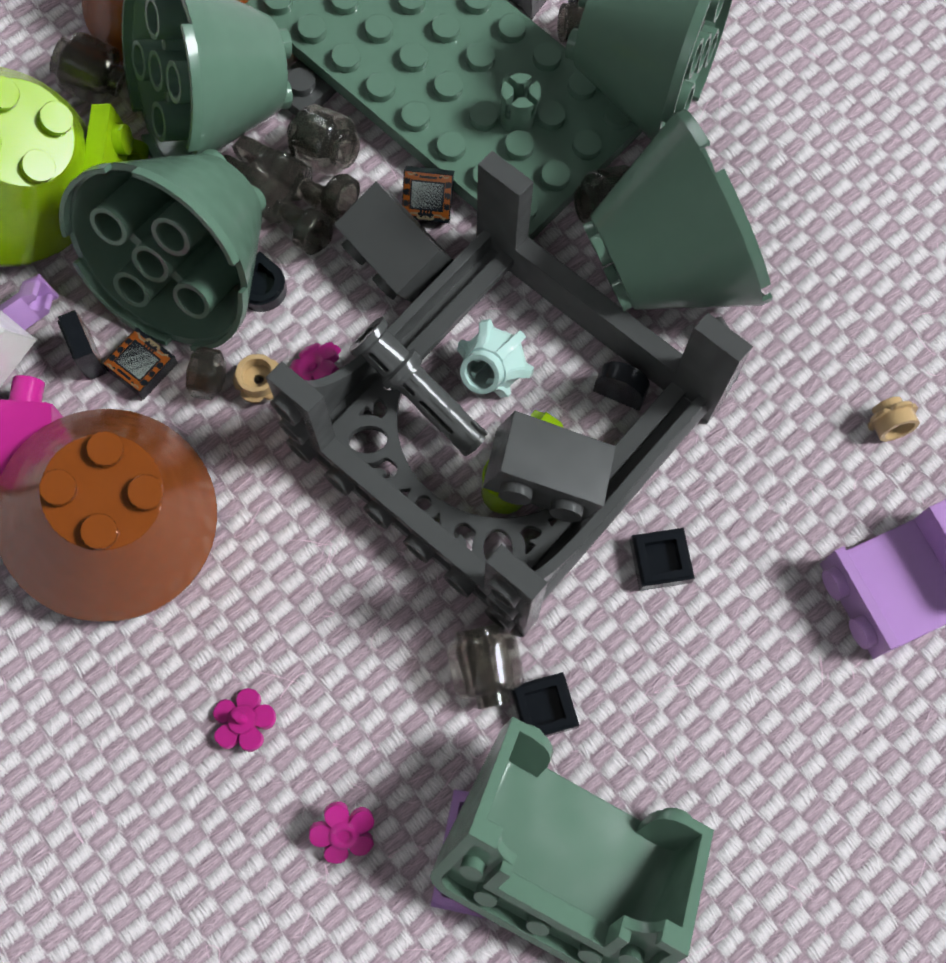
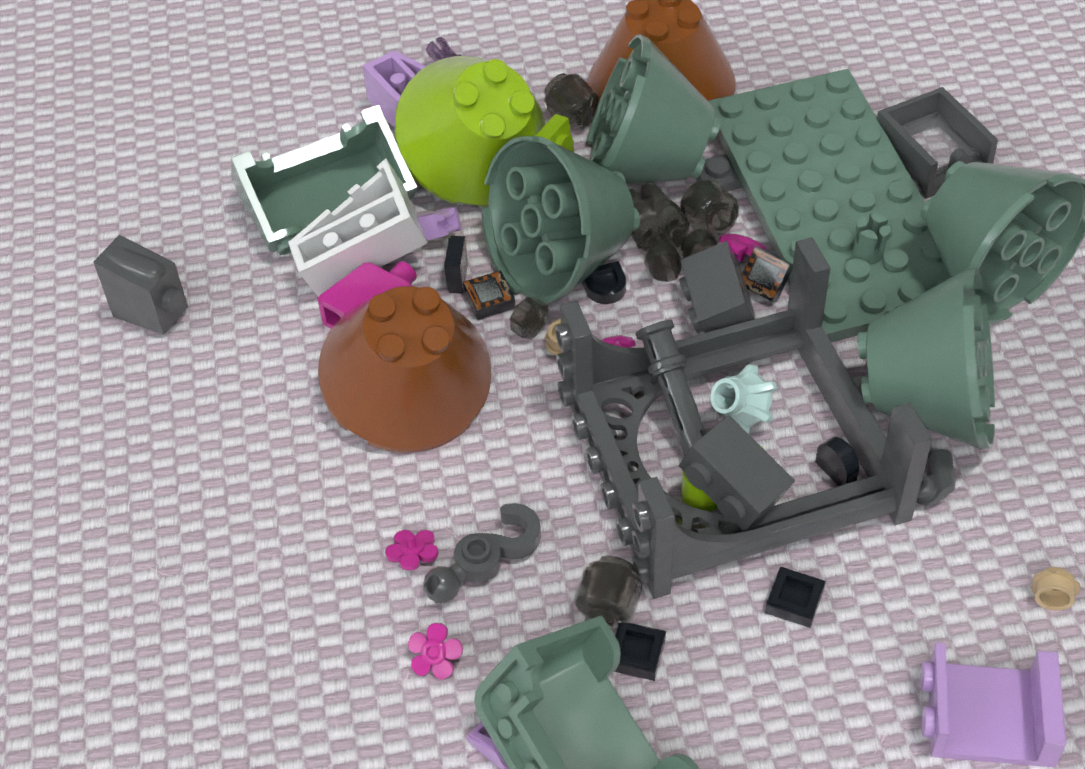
camera: 35 degrees right, 20 degrees down
(323, 692) = (480, 554): none -> dark grey piece
(381, 168) = (740, 244): none -> dark pink plant

